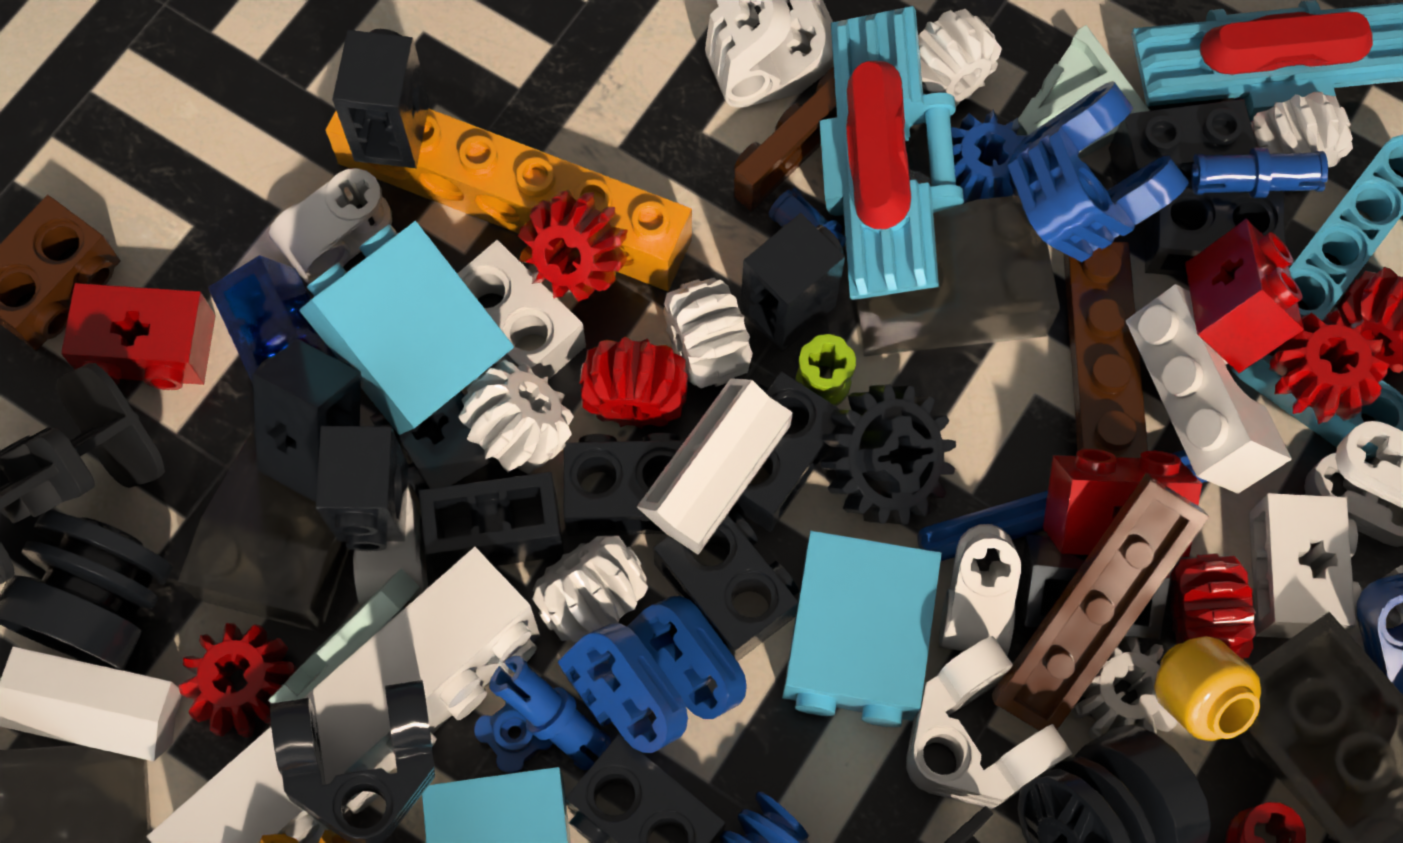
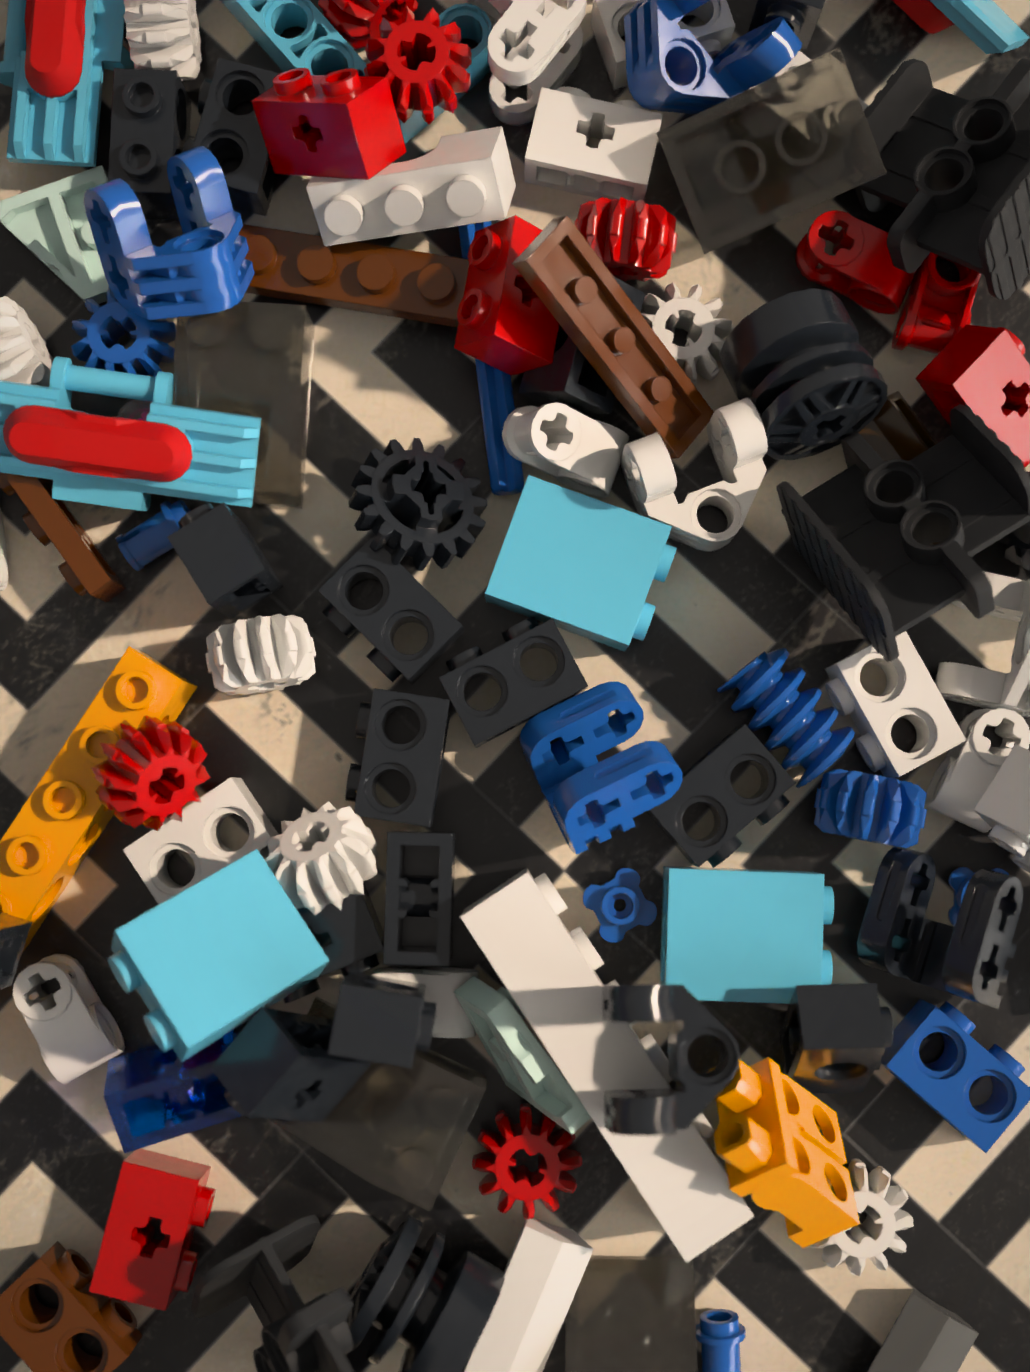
camera: 80 degrees left, 15 degrees up
(549, 712) = (615, 870): blue pin -> none
(590, 588) = (501, 812): white gear -> none
(633, 383) = (300, 736): red gear -> none
(716, 463) = (405, 671): white piece -> none
(830, 352) = (311, 531): lime bush -> none
(1208, 689) = (709, 261): yellow head -> none
(1259, 172) = (200, 74): blue pin -> none

